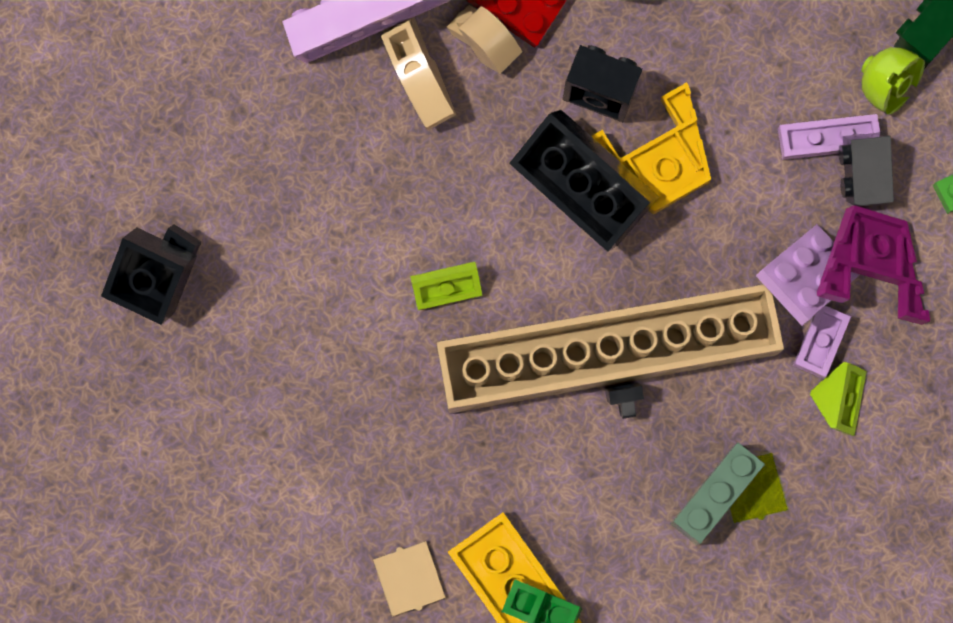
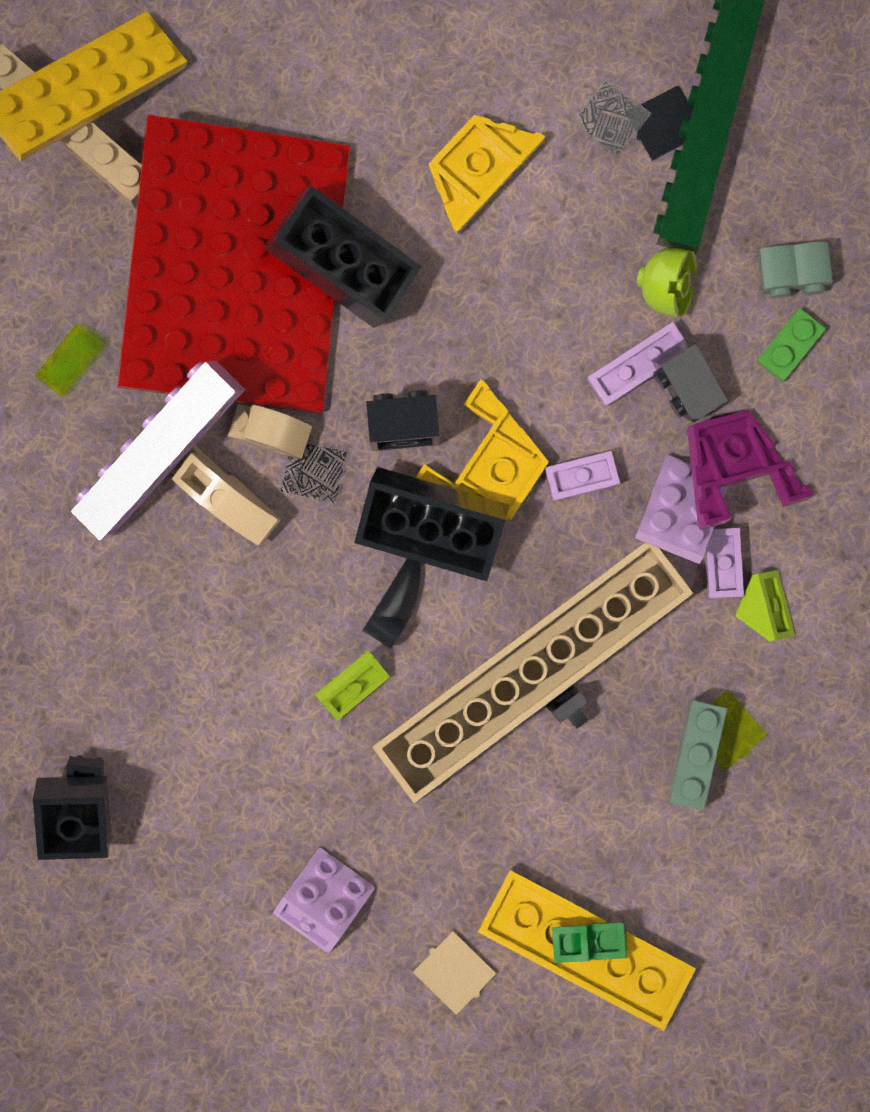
camera: 25 degrees left, 5 degrees up
(327, 457) = (324, 900): none -> lavender bracket
(504, 94) = (316, 475): none -> clear piece
(518, 236) = (396, 605): none -> black piece
(734, 206) = (582, 476): none -> lavender plate

